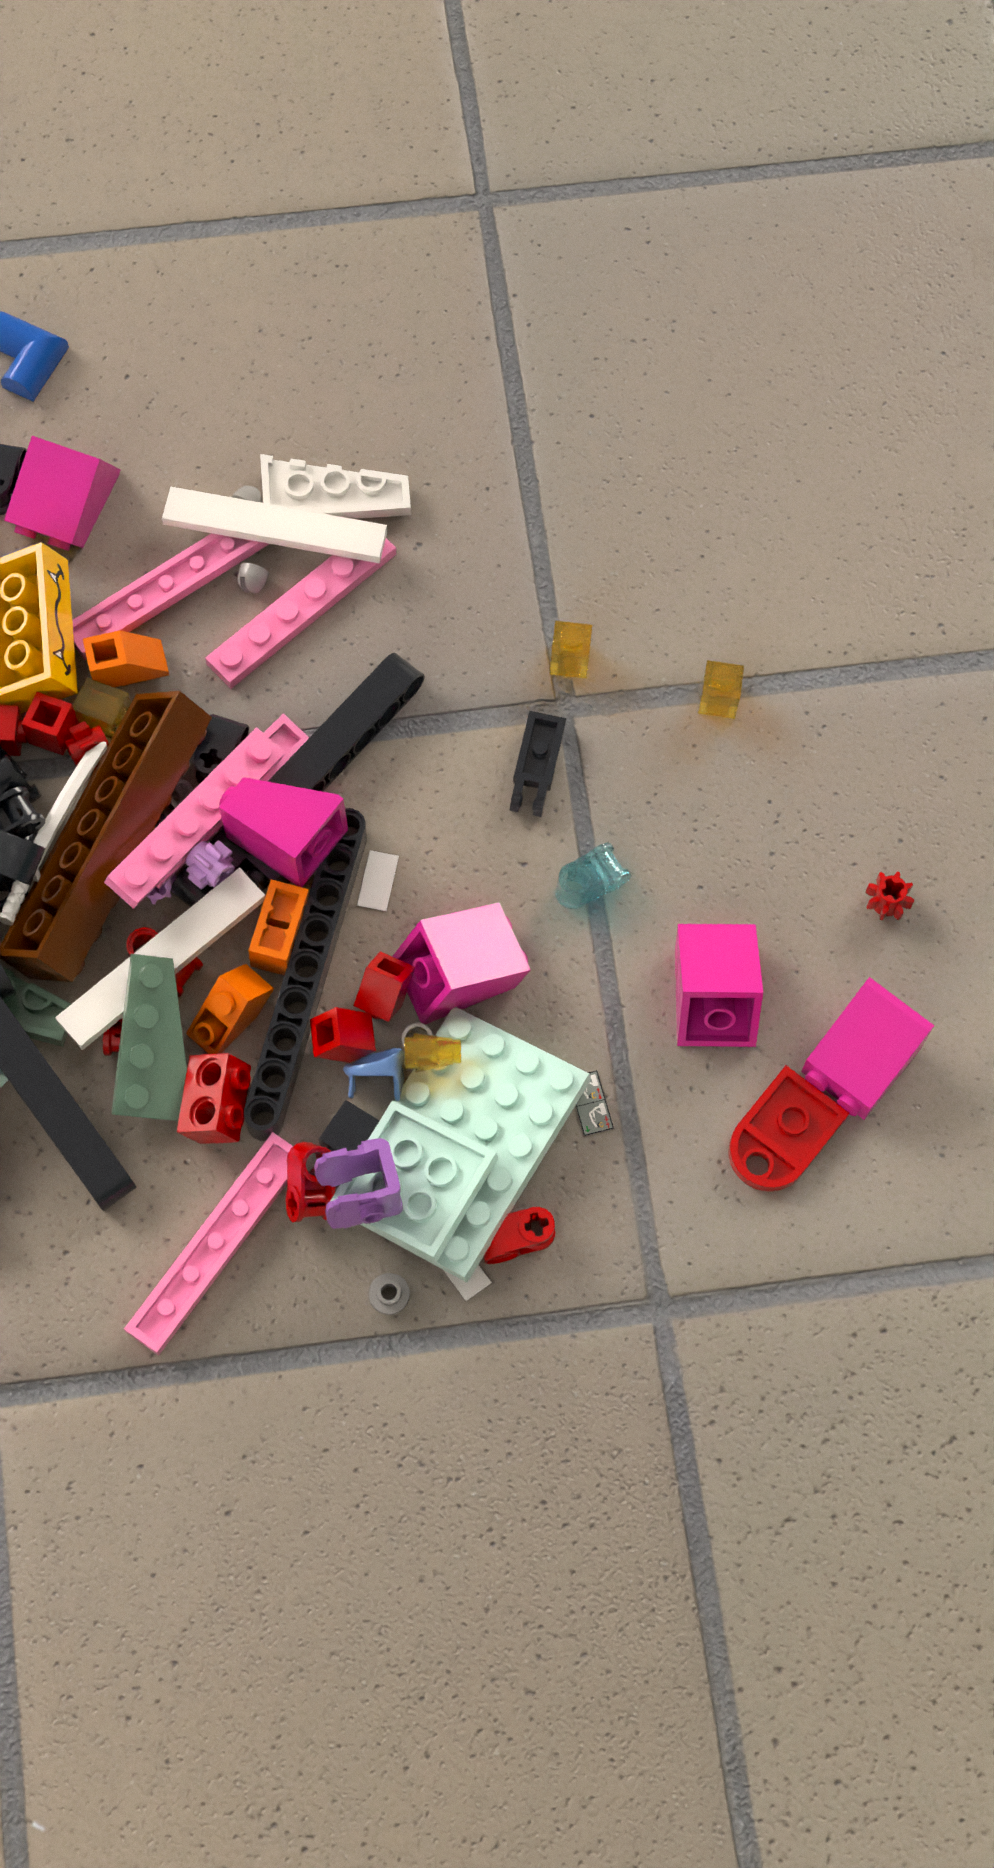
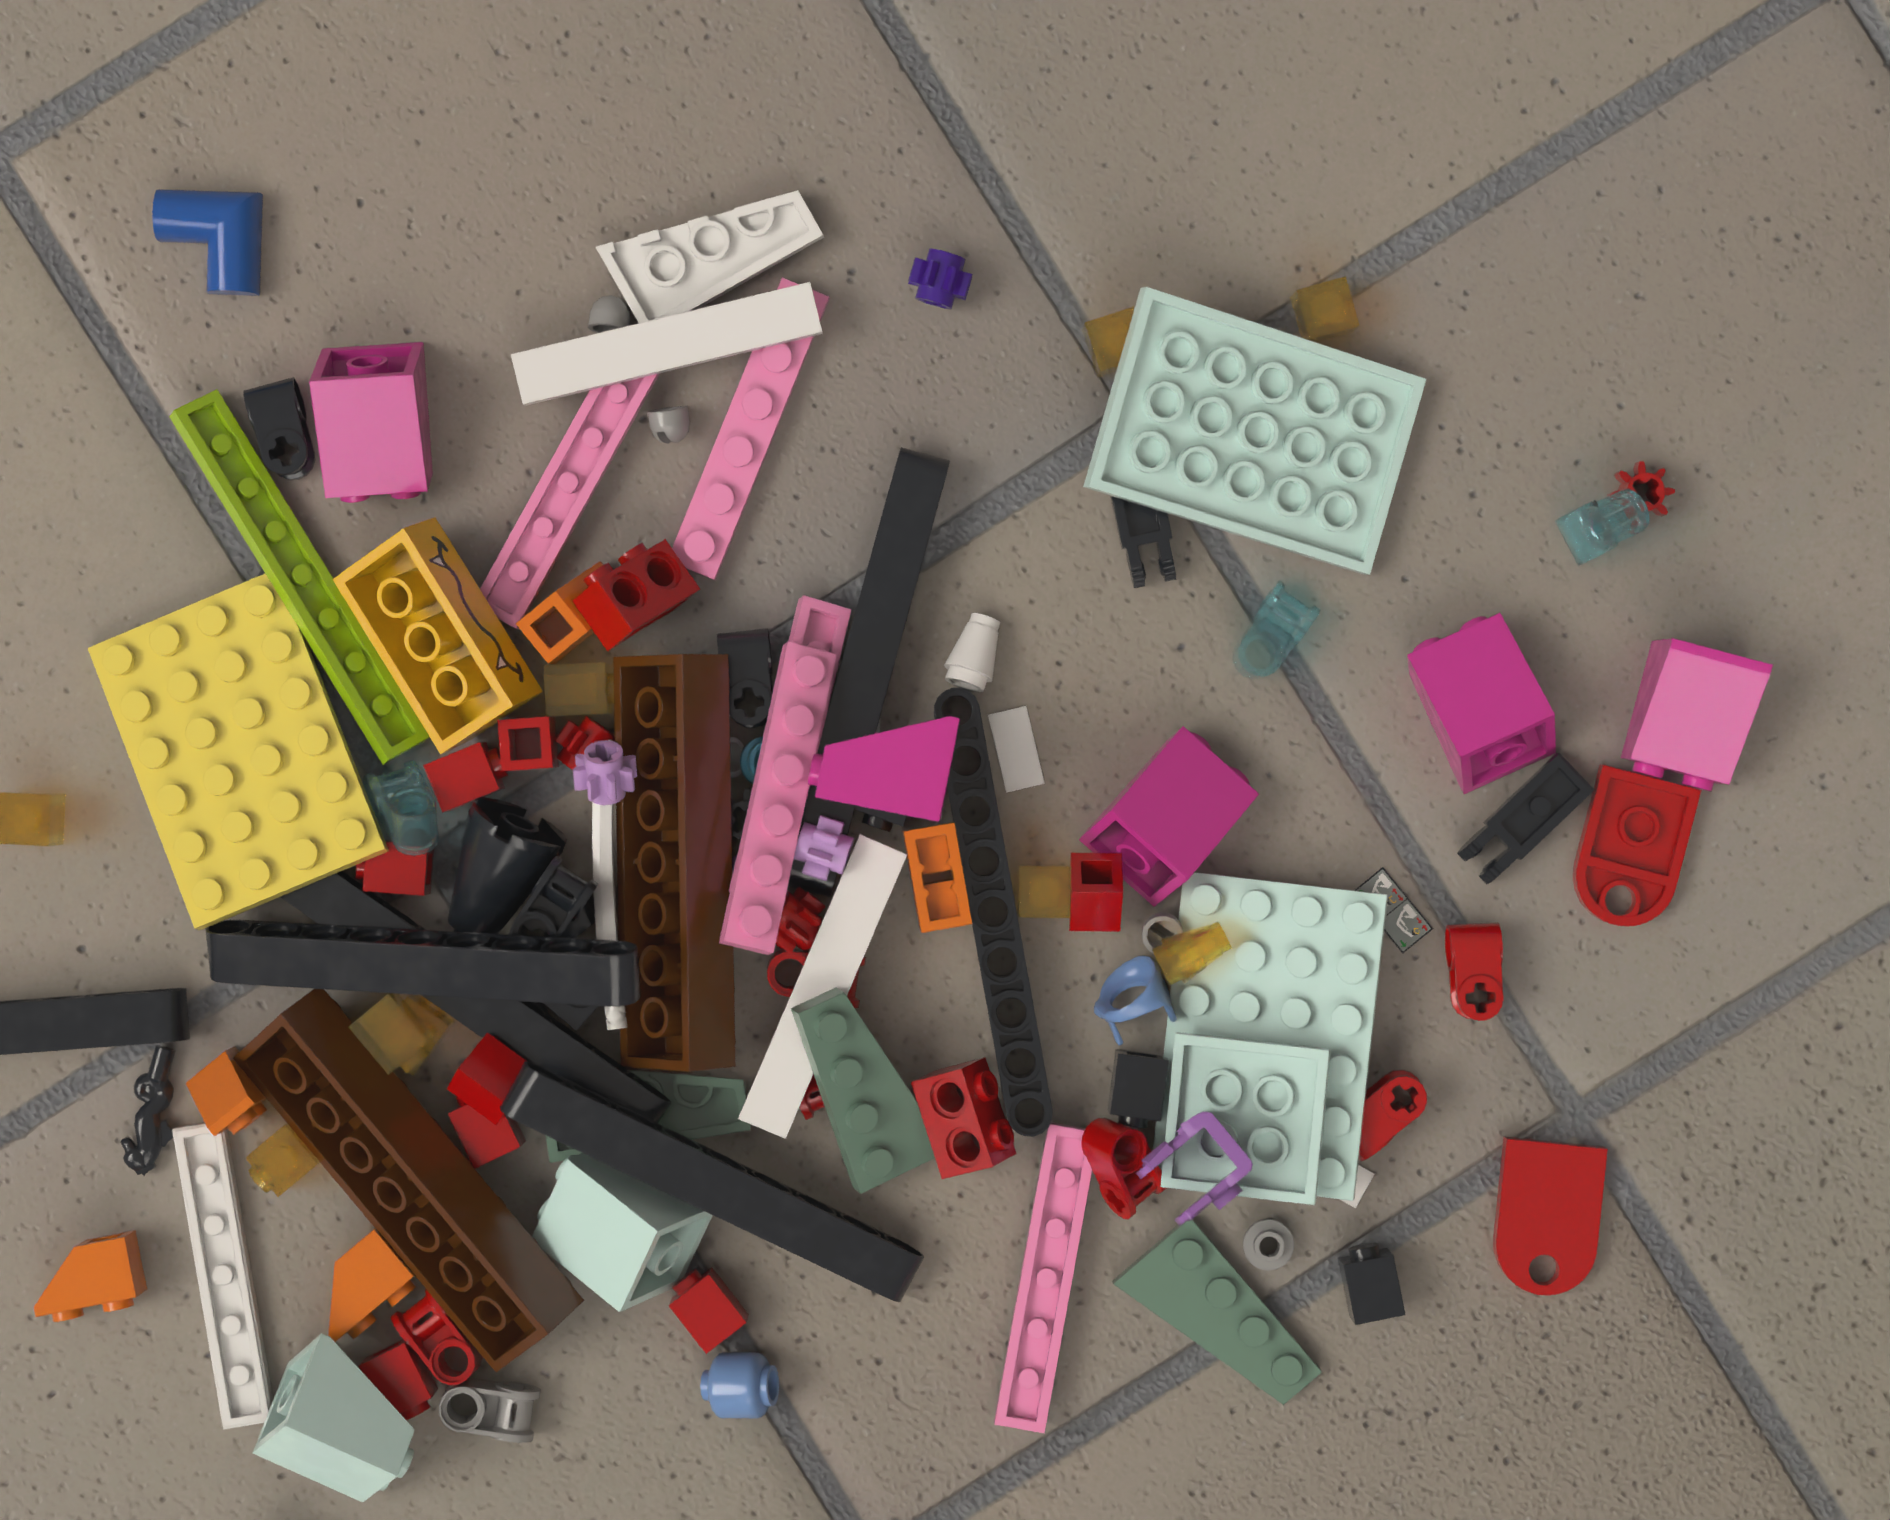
camera: 20 degrees left, 20 degrees up
(88, 751) = (604, 772): none -> lavender gear
(164, 909) = (799, 921): none -> red gear
(171, 660) = (635, 593): none -> red brick
(229, 1009) = (925, 999): orange slope -> none
(328, 1322) = (1210, 1303): none -> sand green wing
(342, 1035) = (1075, 974): red brick -> none
(345, 970) = (1044, 890): none -> clear yellow brick
(380, 802) = (974, 654): none -> white cone
(450, 1354) = (1371, 1284): none -> black brick
(473, 564) = (940, 278): none -> dark purple gear
(609, 1364) = (1548, 1207): none -> red tile
(631, 1160) = (1475, 957): none -> red piece
(638, 737) = (1254, 431): none -> light aqua plate
(716, 1076) = (1529, 815): none -> black hinge
(852, 900) = (1602, 524): none -> clear light blue piece

